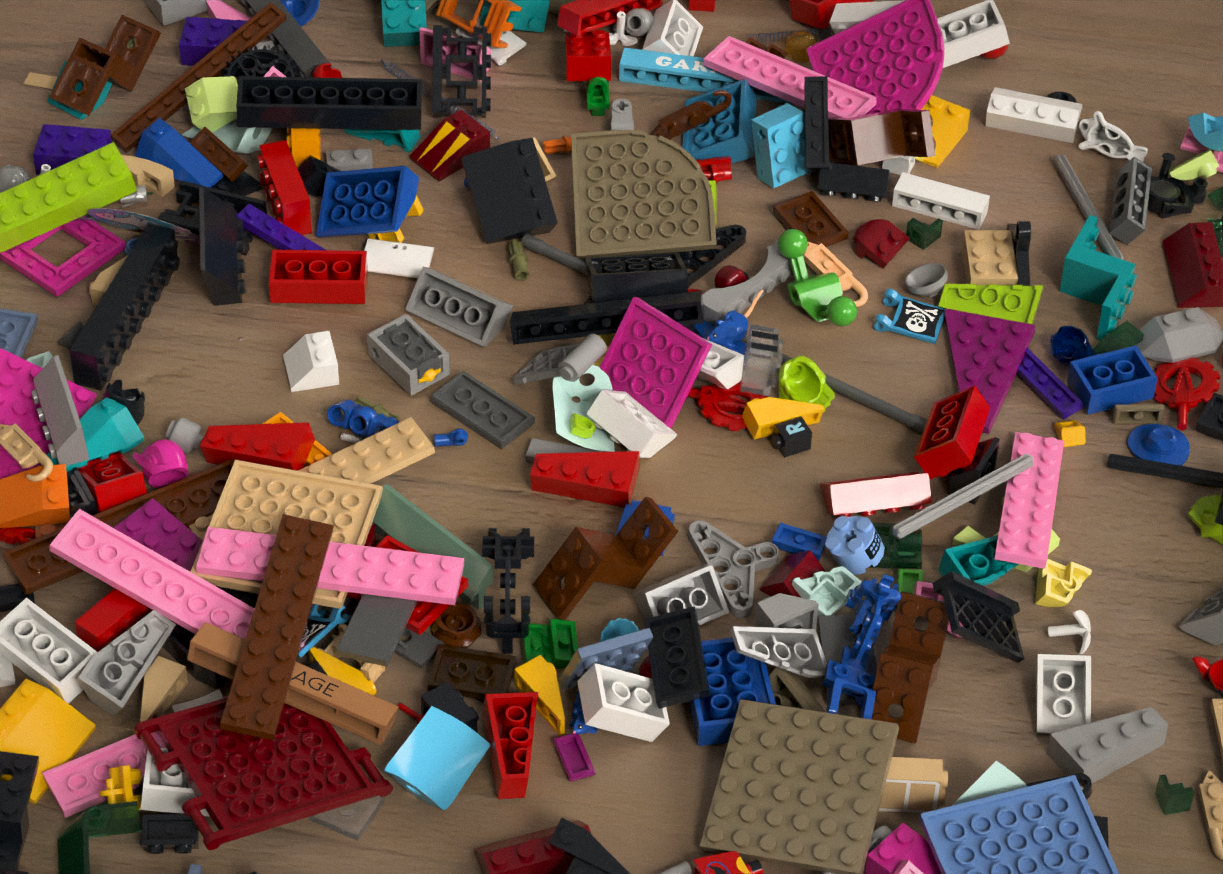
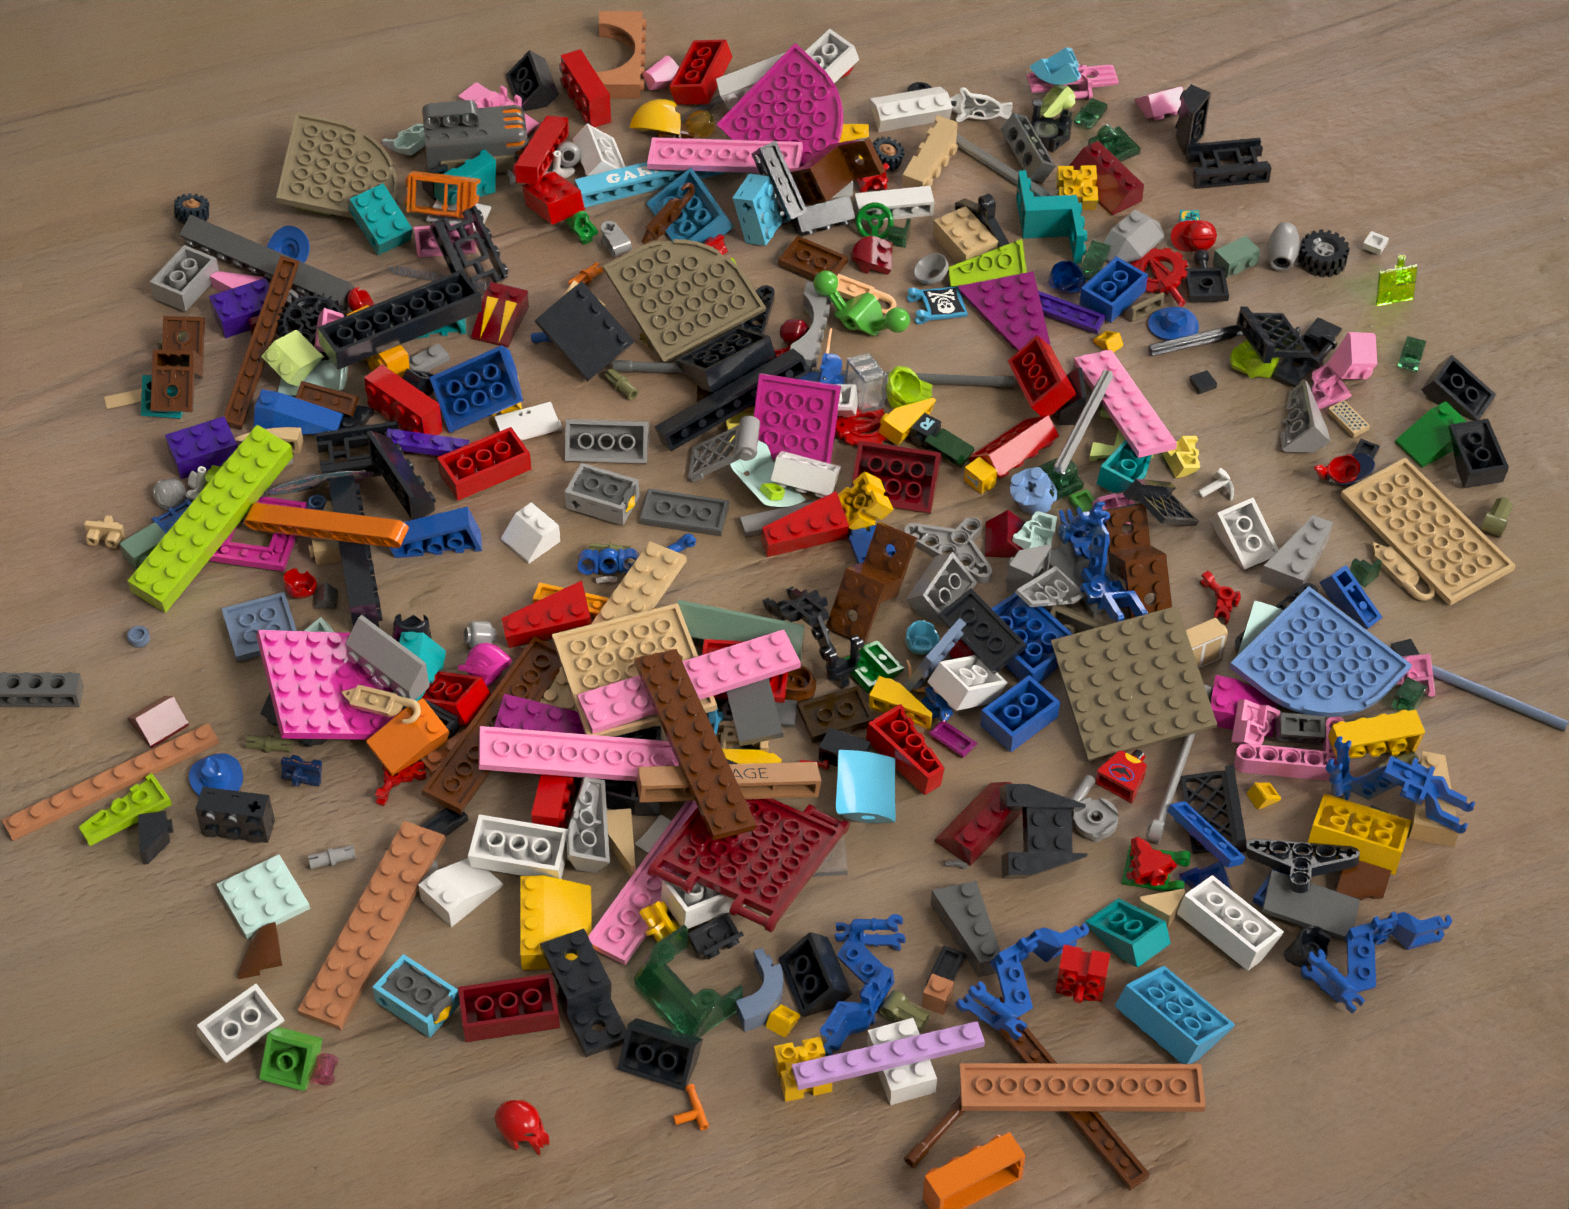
camera: 30 degrees left, 5 degrees up
(56, 313) = (299, 584): none -> red hair
(108, 264) = (326, 525): none -> orange beam
(219, 323) = (440, 533): none -> blue wedge
(660, 762) = (1019, 713): none -> blue brick
(664, 475) = (865, 502): none -> yellow brick
(723, 468) = (906, 473): none -> dark red slope
(757, 21) = (657, 116): none -> yellow brick
(798, 540) = (987, 506): blue plate -> none
(807, 464) = (950, 447): none -> dark green panel
(815, 506) = (980, 475): none -> yellow brick
(914, 209) = (862, 215): none -> green piece
(939, 168) = (876, 182): none -> red hips
(971, 148) = (889, 152): none -> black wheel
(988, 752) = (1224, 595): none -> red piece
(1018, 168) = (932, 154): none -> tan wedge
(1133, 816) = (1350, 597): none -> blue slope
(1144, 518) = (1203, 382): none -> black tile
(1154, 260) = (1078, 183): none -> yellow brick

